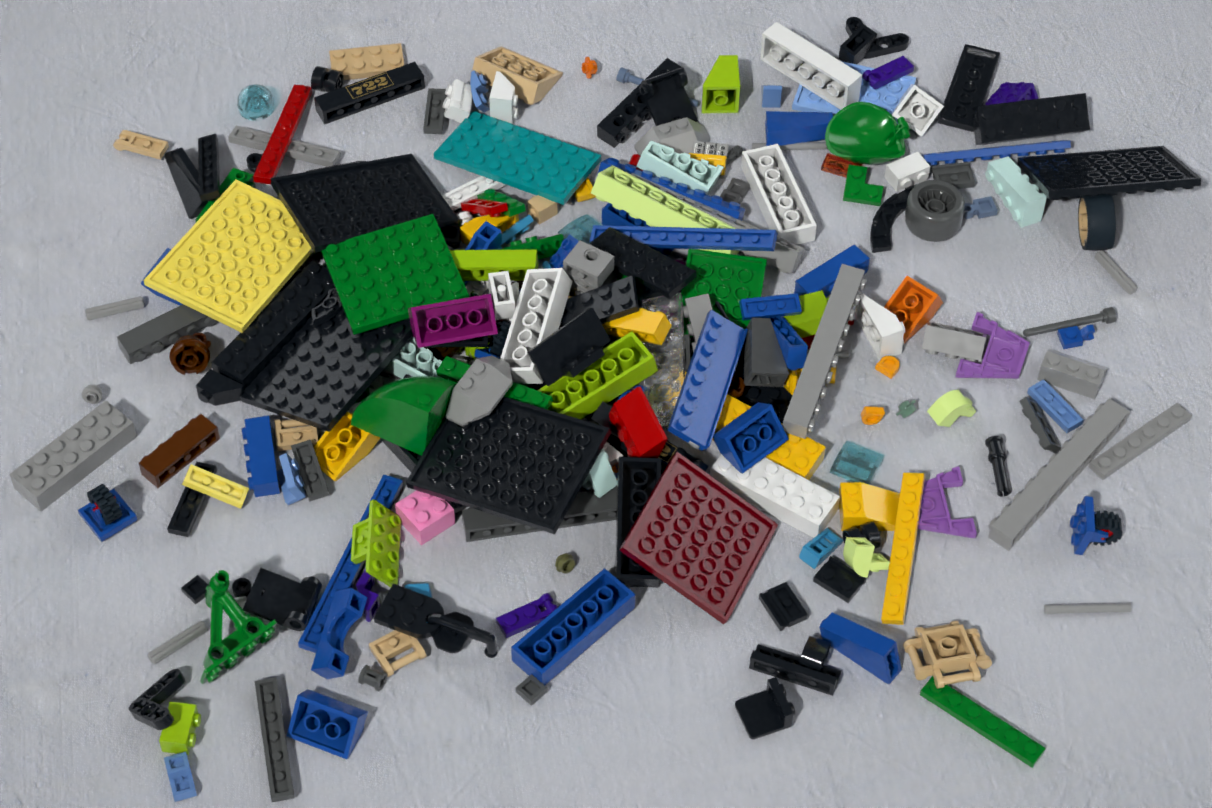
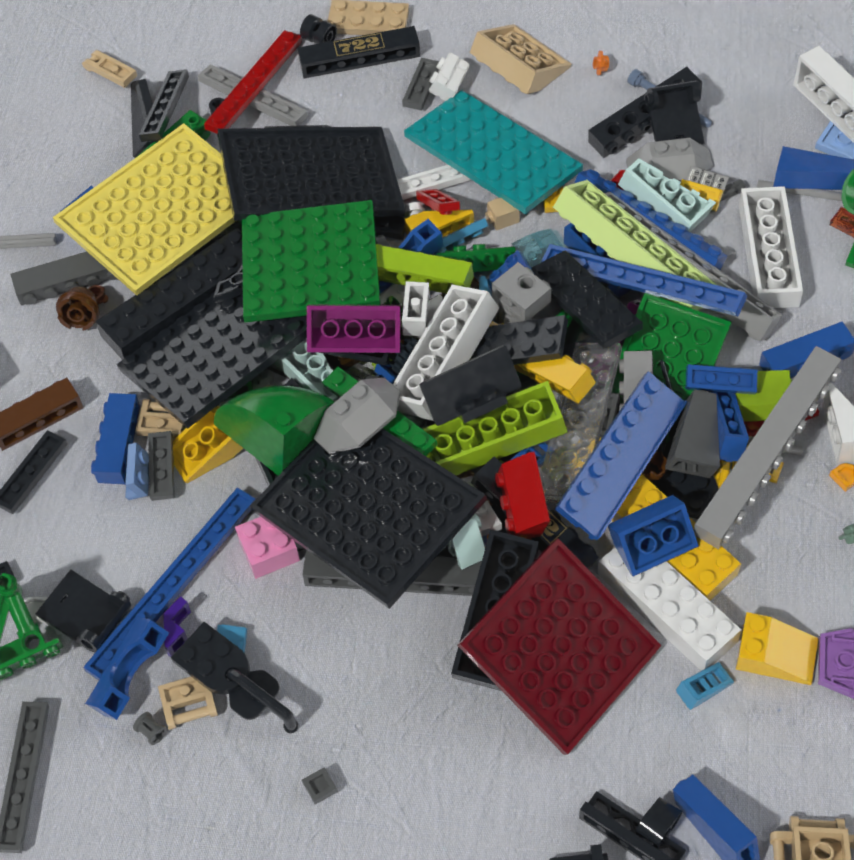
camera: 20 degrees right, 5 degrees up
(215, 486) = (55, 463): light yellow plate -> none
(218, 389) = (96, 352): black slope -> none
(239, 583) = (41, 585): black bush -> none
(255, 102) = (239, 42): clear light blue cylinder -> none
(326, 723) = (83, 771): blue slope -> none
(378, 543) = (205, 570): lime bracket -> none
(478, 90) = (472, 67): medium blue slope -> none
(503, 99) = (494, 84): white slope -> none
(514, 206) = (468, 205): green plate -> none
(525, 616) = (344, 692): dark purple plate -> none
(565, 563) = (403, 638): olive plate -> none
(573, 627) = (387, 721): blue brick -> none
(722, 86) = (739, 109): lime slope -> none
(735, 191) = (723, 234): flat silver slope -> none
(771, 96) = (794, 129): medium blue slope -> none
(783, 606) = (639, 750): black plate -> none
(839, 579) = (716, 731): black plate -> none
(856, 463) = (775, 590): clear light blue slope -> none
(860, 556) = (749, 713): yellowish green brick -> none
(866, 530) = (756, 686): black wheel -> none
(872, 415) = (809, 533): light orange tile -> none
(903, 549) = (801, 711): yellow plate -> none

